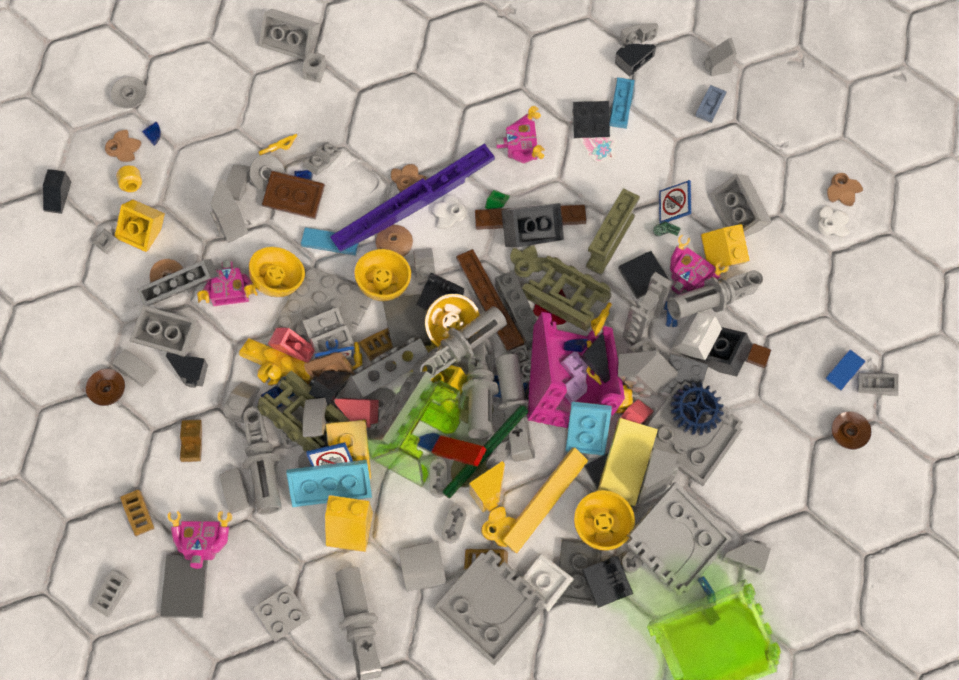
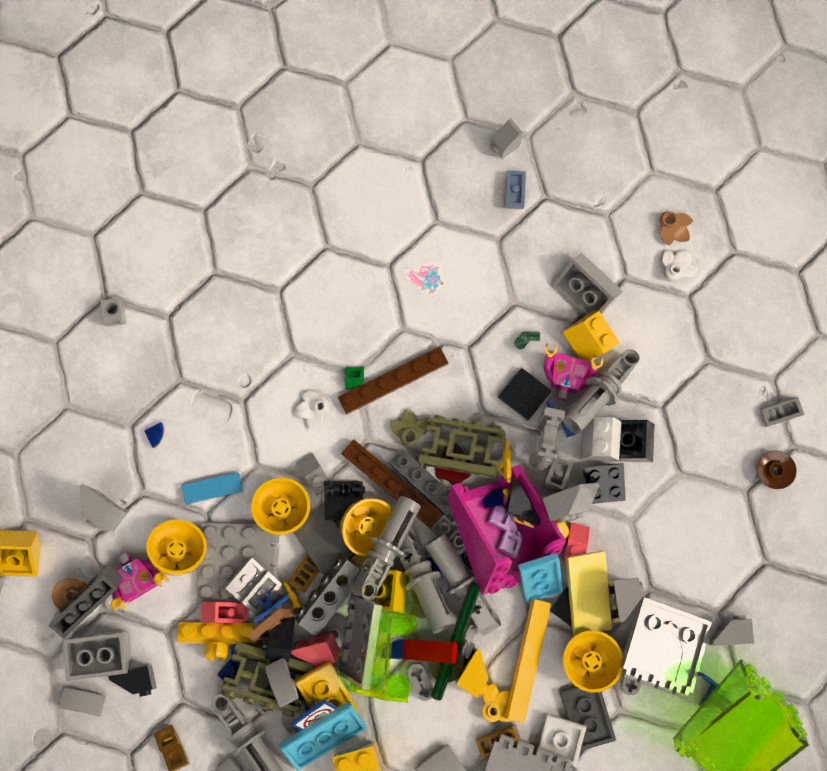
camera: 20 degrees left, 10 degrees up
(99, 381) = (54, 735): reddish brown dish -> none
(236, 181) = (92, 467): light grey slope -> none
(239, 401) = (201, 689): light grey slope -> none
(264, 163) = (126, 441): light grey dish -> none
(279, 145) = (117, 407): yellow hand -> none
(288, 33) = (71, 286): light grey slope -> none
(293, 195) = (154, 456): reddish brown tile -> none
(323, 158) = (165, 405): light grey slope -> none
(401, 245) = (283, 463): medium nougat dish -> none
(406, 177) = (256, 388): medium nougat plate -> none
(412, 199) = (273, 412): dark purple slope -> none
(458, 525) = (449, 720): light grey beam -> none
(522, 139) = (351, 304): dark pink torso -> none
(532, 225) = (400, 392): black slope -> none
(591, 119) = (408, 254): black hinge -> none
(607, 581) = (618, 714): black hinge -> none
(612, 231) = (480, 368): olive fence -> none
(621, 103) = (429, 223): dark azure tile -> none
(634, 56) = (421, 171): black slope -> none
(641, 31) = (419, 140): light grey slope -> none
(675, 202) = (524, 309): piece -> none
(681, 407) = (633, 521): dark blue gear -> none
(696, 454) = (635, 534): light grey hinge -> none
(758, 355) = (664, 430): reddish brown tile -> none
(845, 370) = (747, 411): blue slope -> none

